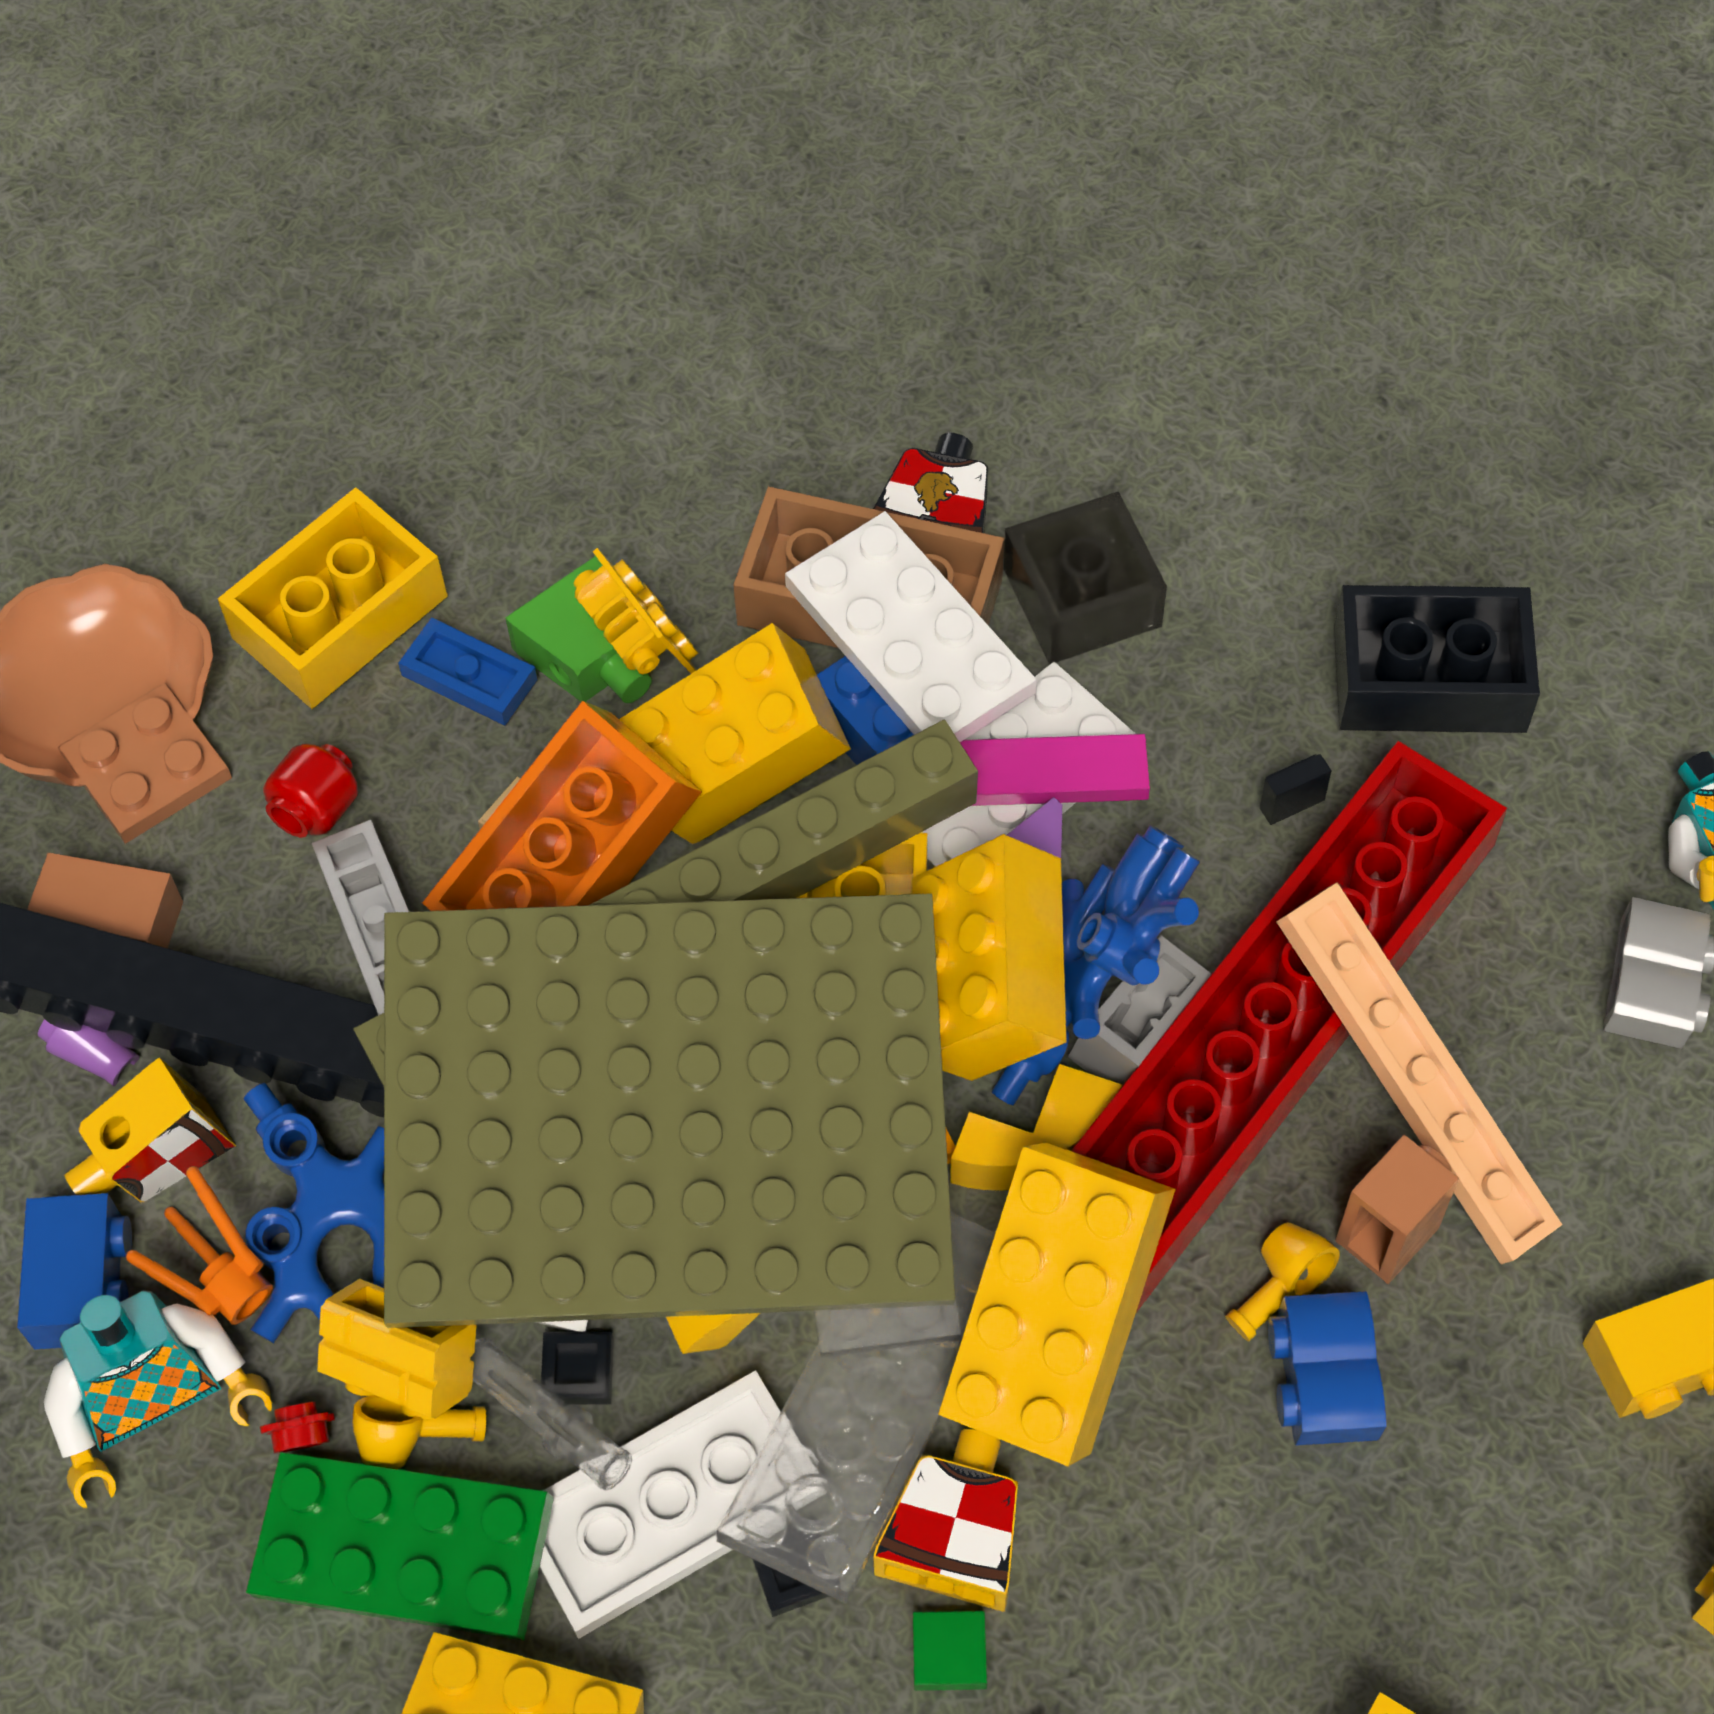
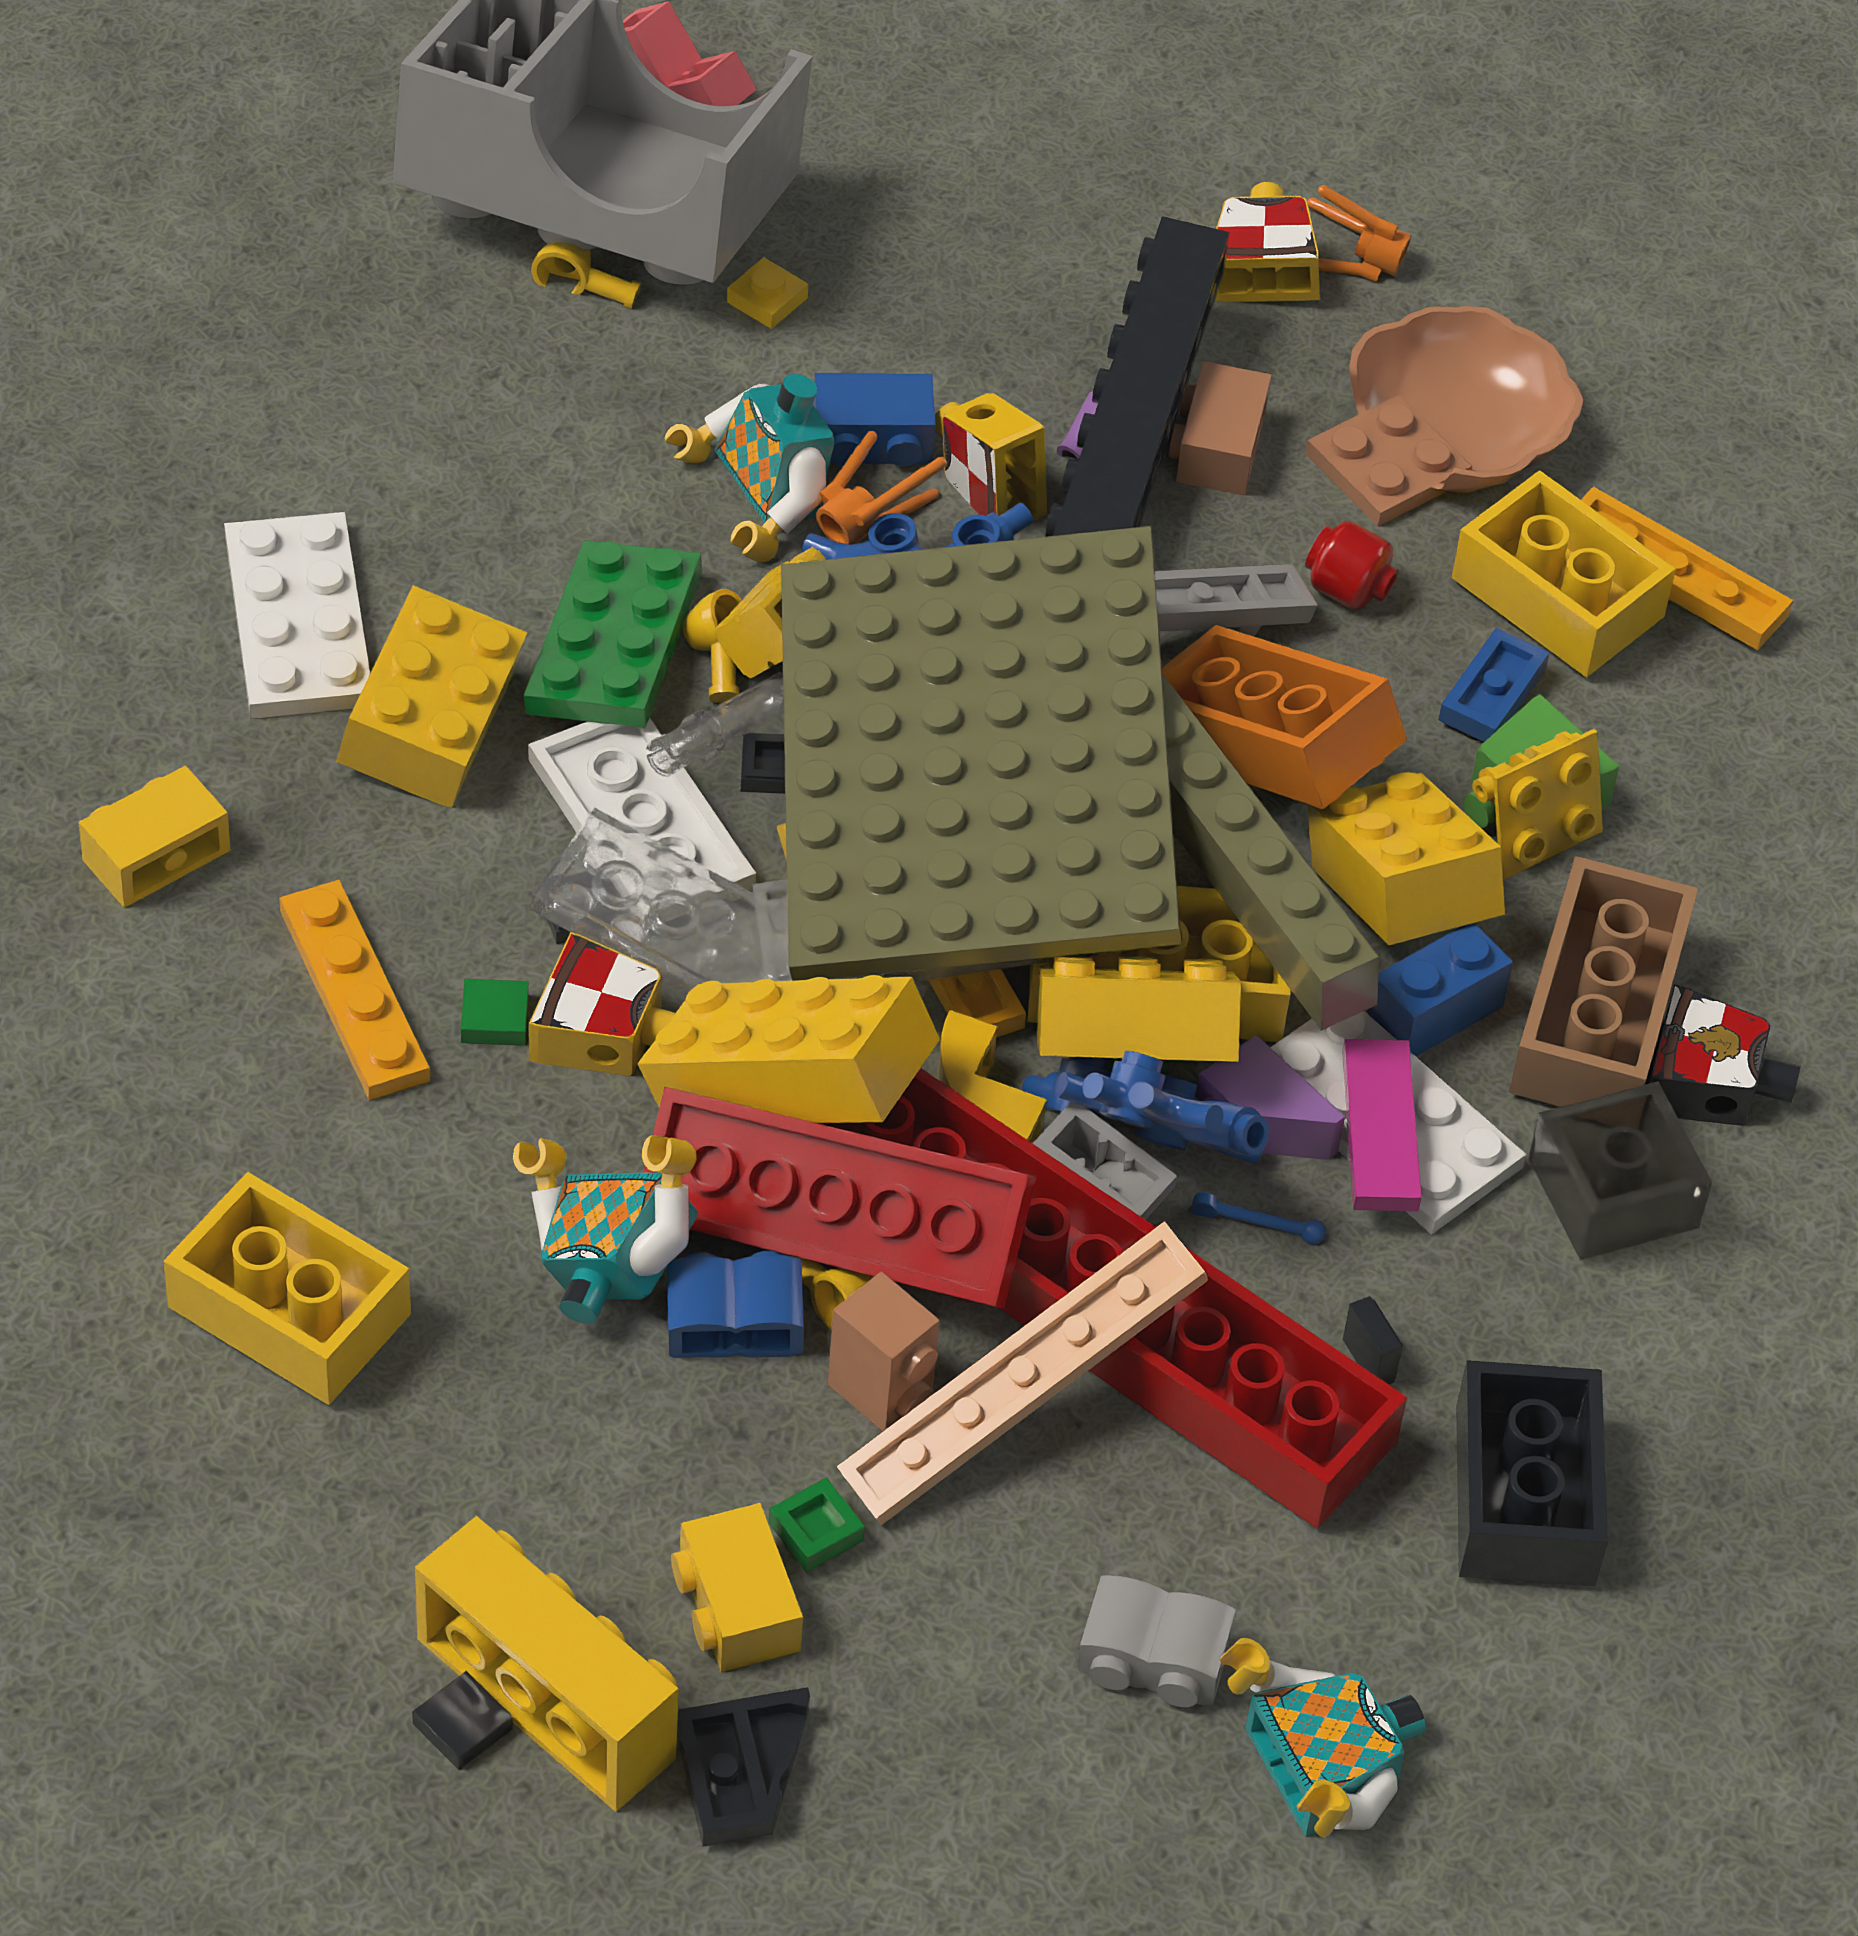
camera: 85 degrees right, 10 degrees down
(298, 1427) = (723, 566): red plate -> none
(358, 458) = (1702, 580): none -> light orange plate
(909, 630) = (1516, 986): white plate -> none
(1224, 1260) = (850, 1198): none -> red plate
(1274, 1494) = (610, 1229): none -> torso
(1577, 1280) = (816, 1524): none -> green plate

